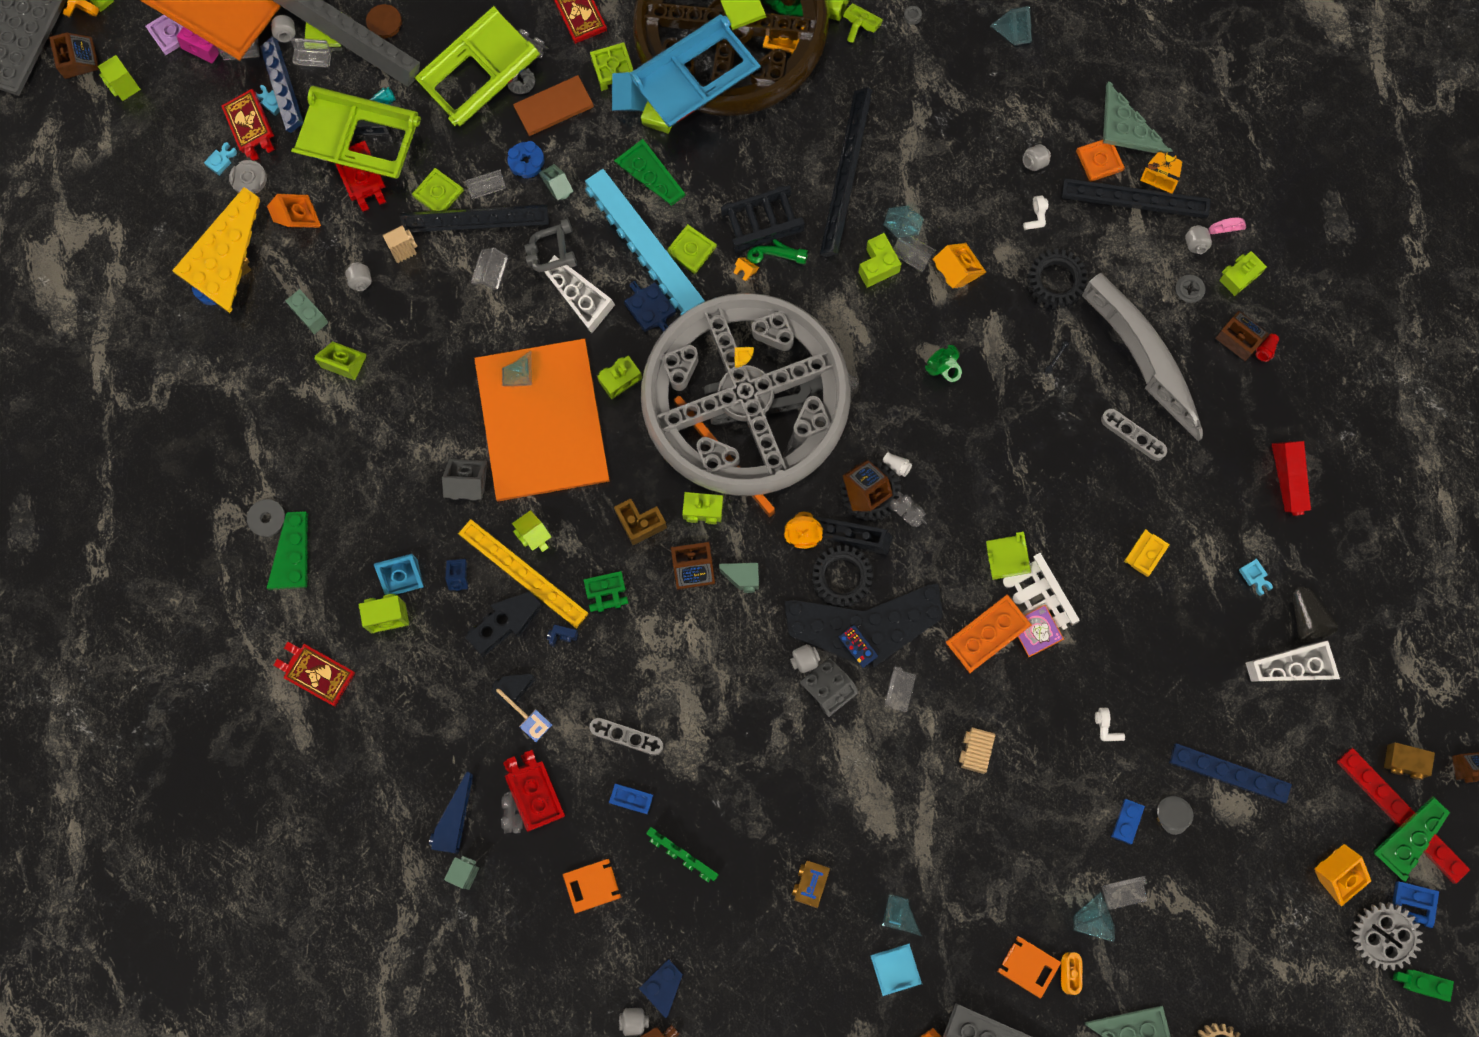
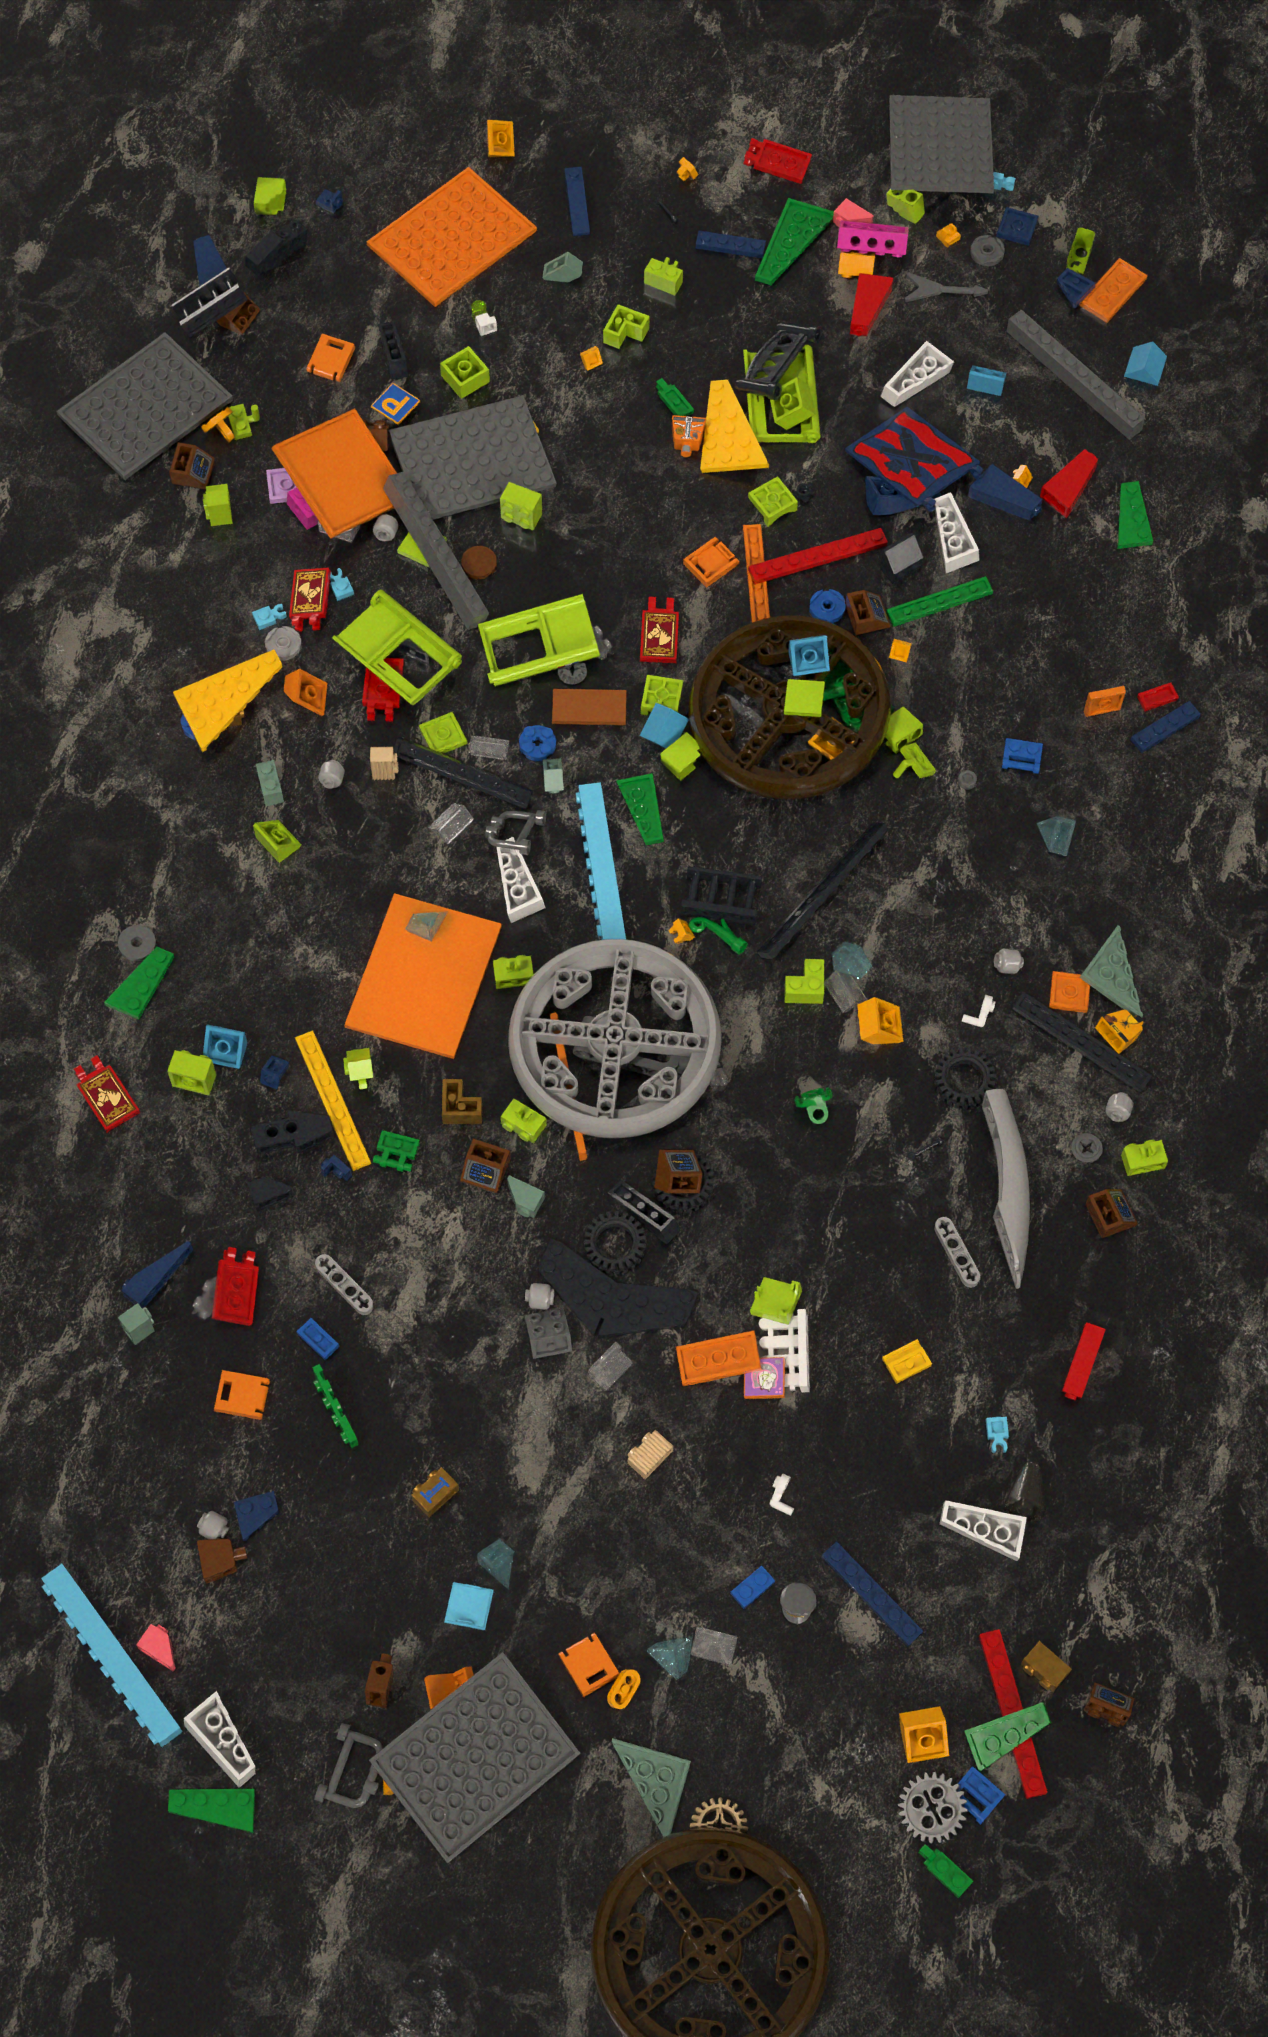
camera: 25 degrees right, 10 degrees down
(281, 84) = (356, 576): dark blue plate -> none
(311, 52) = (398, 560): clear panel -> none
(384, 96) = (441, 628): teal cone -> none
(464, 479) = (326, 993): dark grey slope -> none
(535, 723) = (269, 1233): piece -> none
(649, 306) = (575, 923): dark blue plate -> none
(673, 88) = (700, 734): dark azure piece -> none
(691, 249) = (642, 891): lime tile -> none
(743, 355) = (628, 1002): yellow tile -> none
(803, 531) = (601, 1185): light orange tile -> none
(858, 646) = (593, 1308): tile -> none
(898, 464) = (722, 1171): white cone -> none
(905, 504) = (705, 1205): clear hinge -> none
(1228, 225) = (1157, 1108): bright pink tile -> none
(1267, 348) = (1129, 1236): red cone -> none

